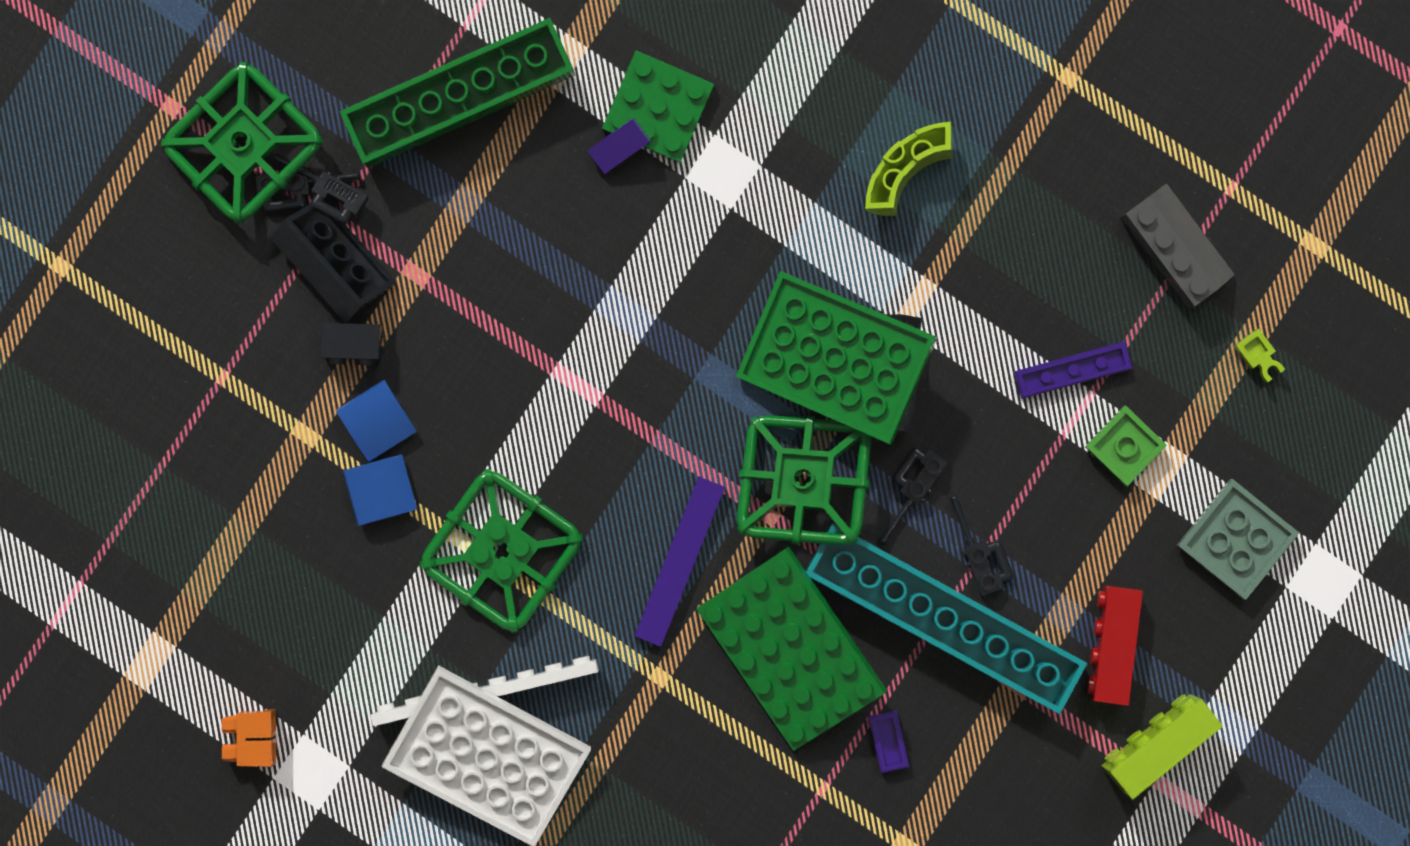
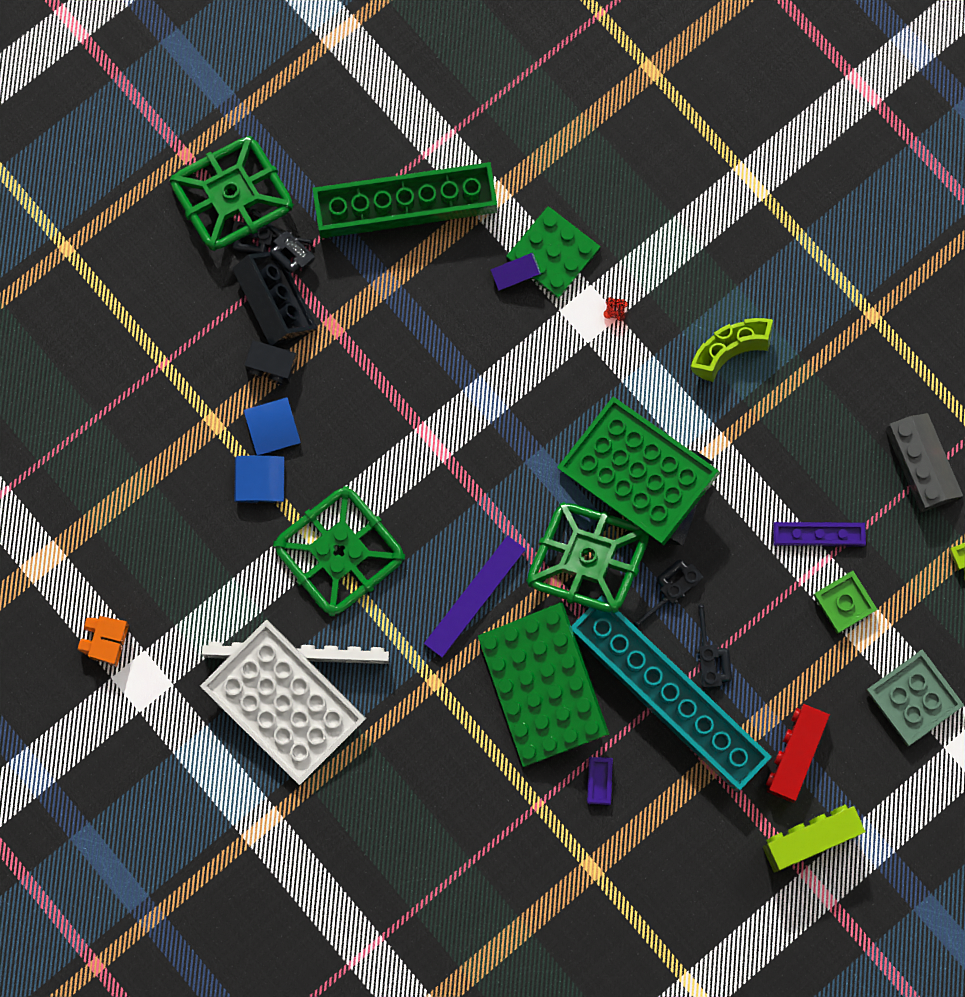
camera: 15 degrees right, 10 degrees down
(757, 150) = (619, 304): none -> clear red plate

